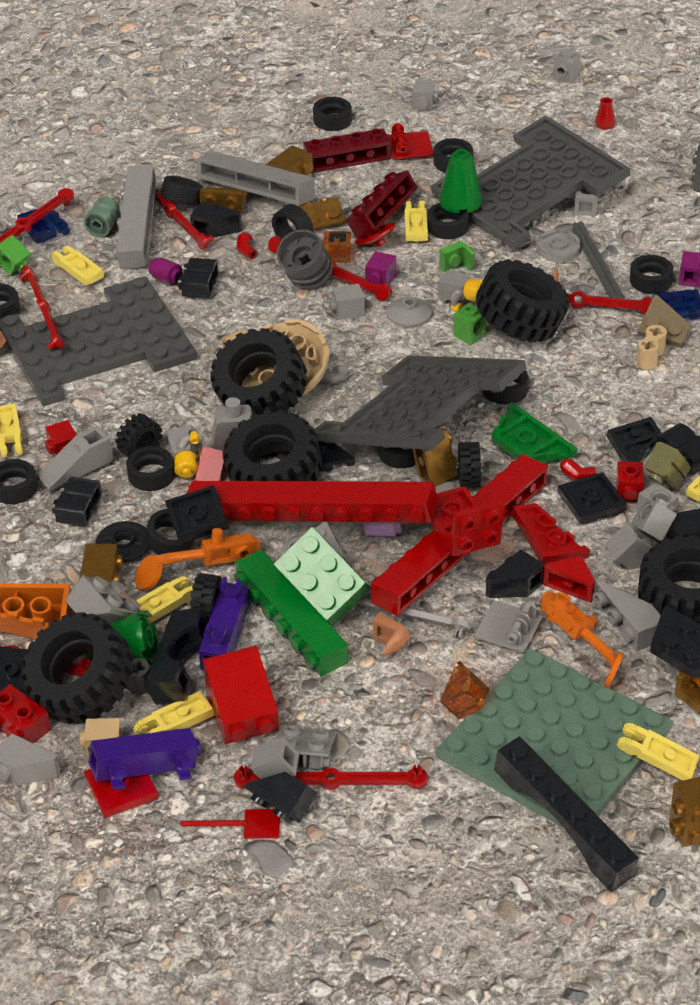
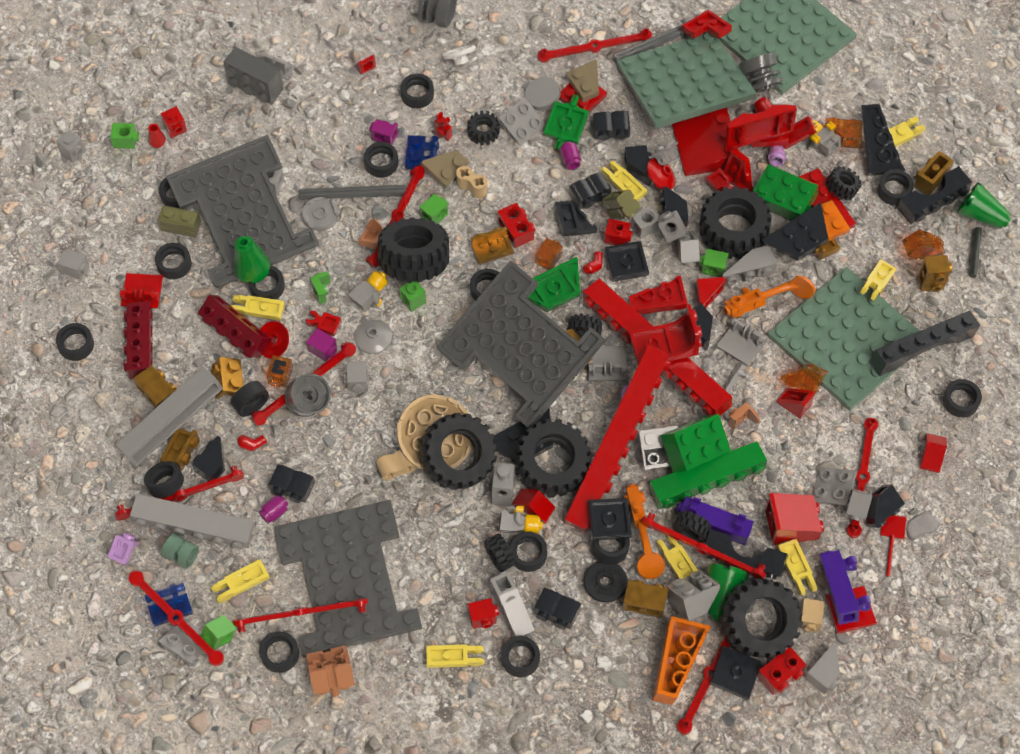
camera: 80 degrees left, 20 degrees up
(103, 182) = (122, 547): none -> lavender bracket
(170, 605) = (702, 548): none -> red piece
(391, 853) = (933, 453): none -> red slope
(411, 270) = (327, 322): none -> red plate
(425, 691) = (796, 401): none -> red slope
(488, 896) = (971, 388): none -> black tyre
(502, 142) = (179, 221): none -> olive brick
(565, 376) = (491, 245): none -> pearl gold bracket
(573, 425) = (549, 254): none -> clear orange brick
(593, 93) = (124, 135): none -> bright green brick
(597, 323) = (434, 209): none -> bright green brick
(603, 391) = (515, 225): none -> red brick
(621, 574) = (713, 263): none -> bright green brick
(629, 122) = (173, 122): none -> red brick

